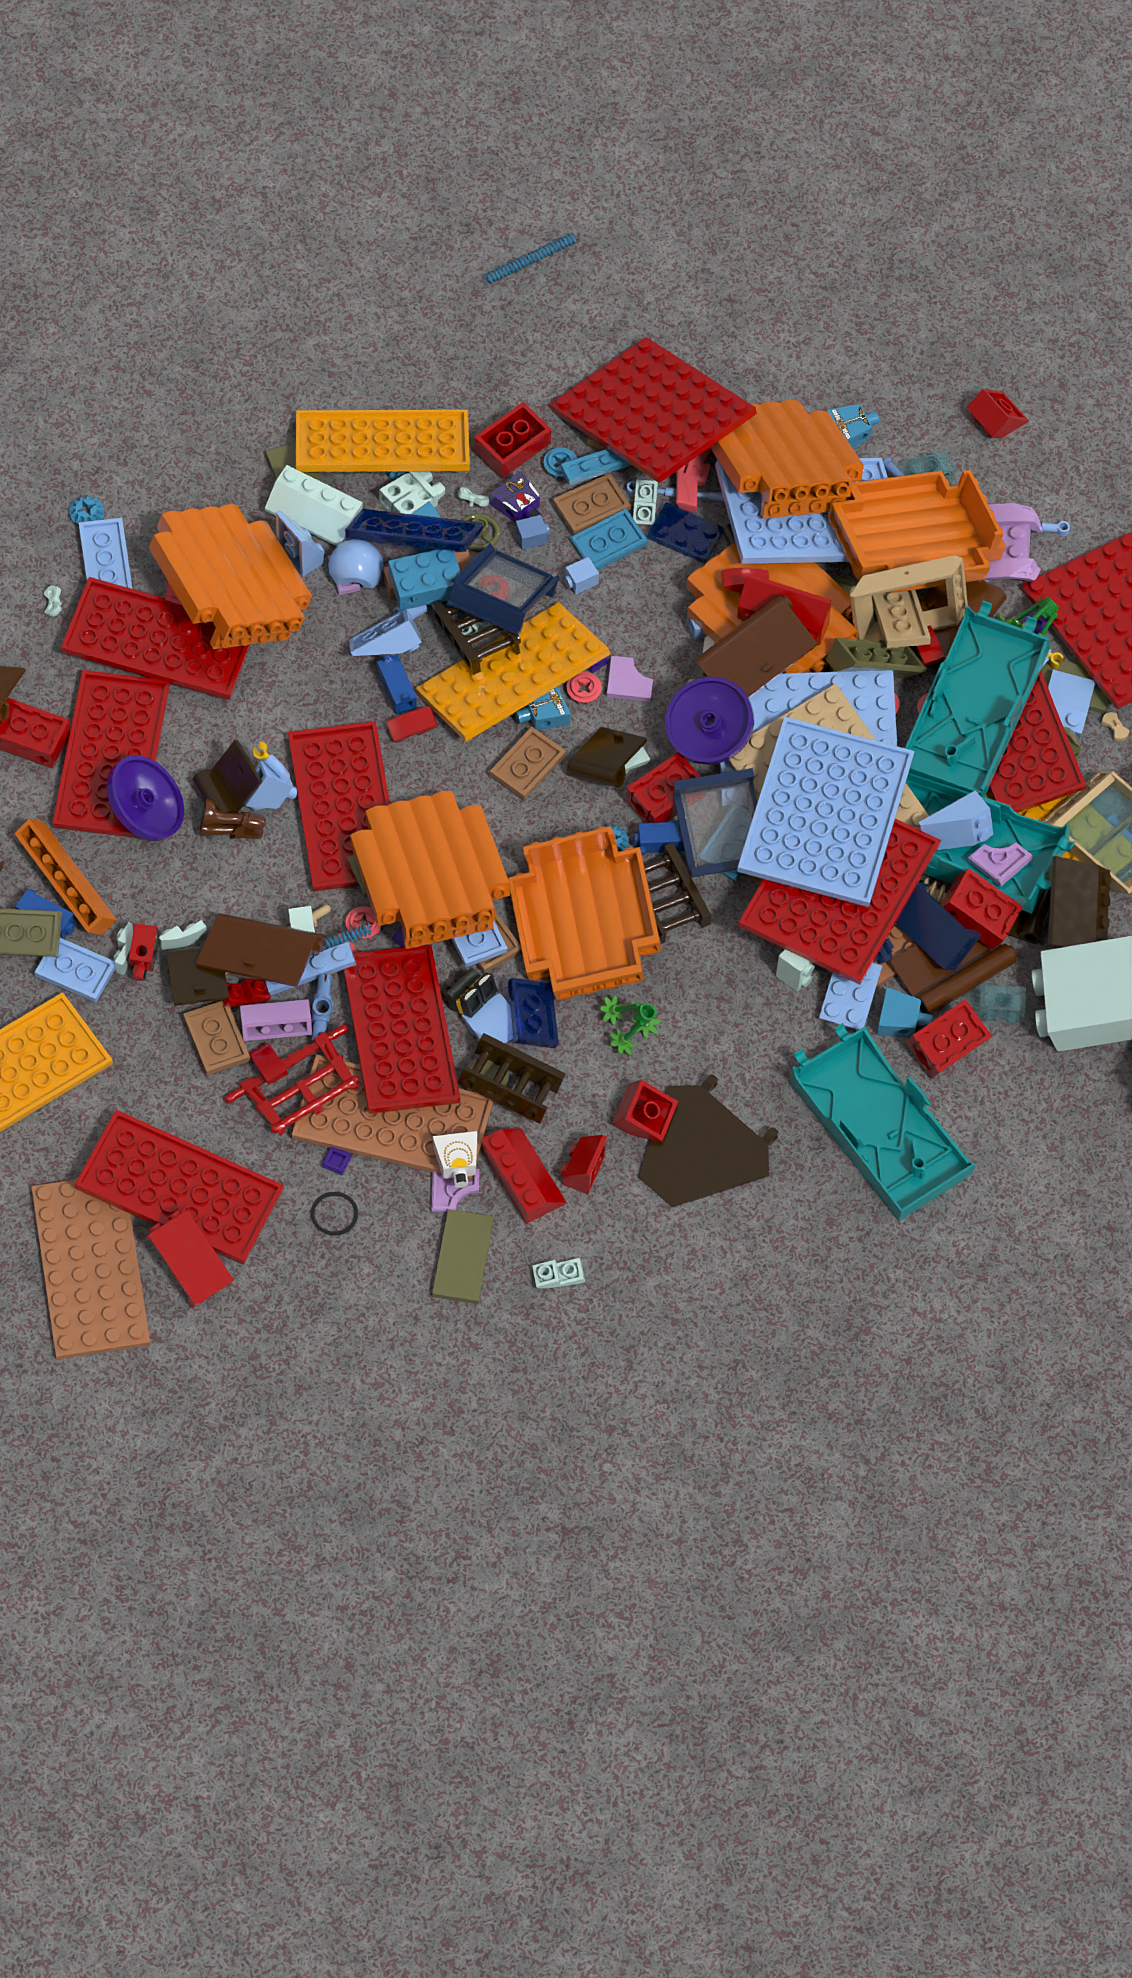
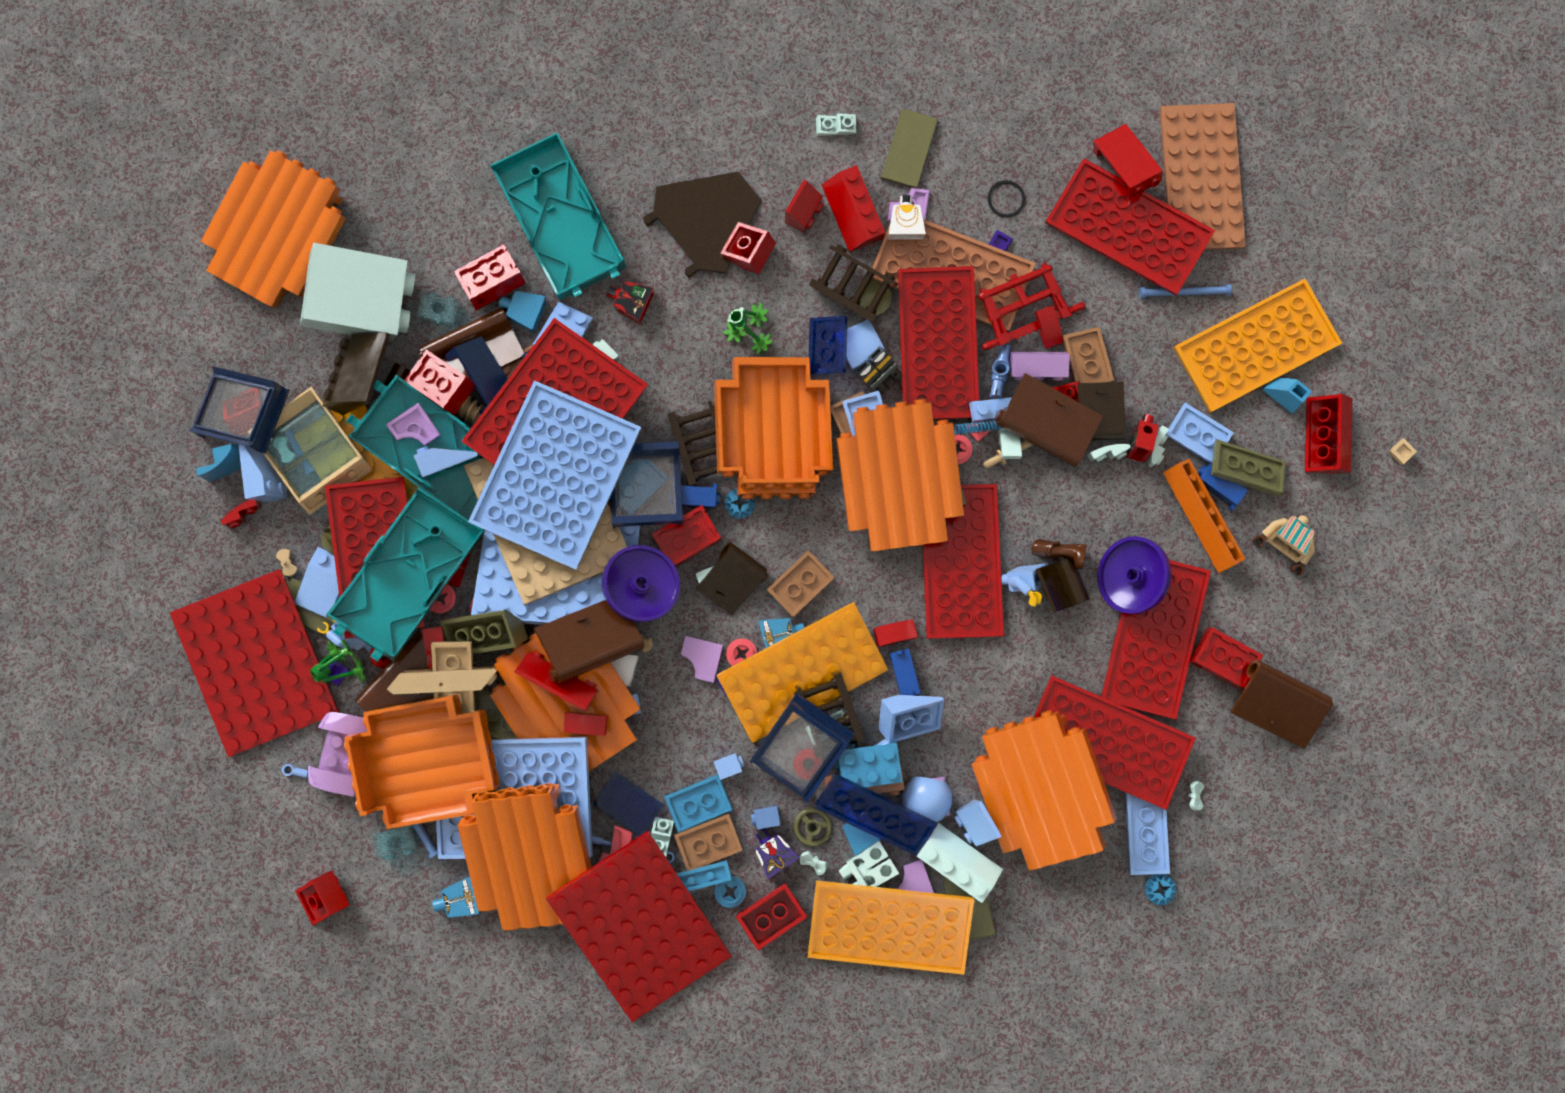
camera: 175 degrees left, 20 degrees up
(91, 1129) = (1187, 291): none -> medium blue bar
(361, 486) = (915, 878): none -> lavender tile
(775, 1039) = (631, 300): none -> torso

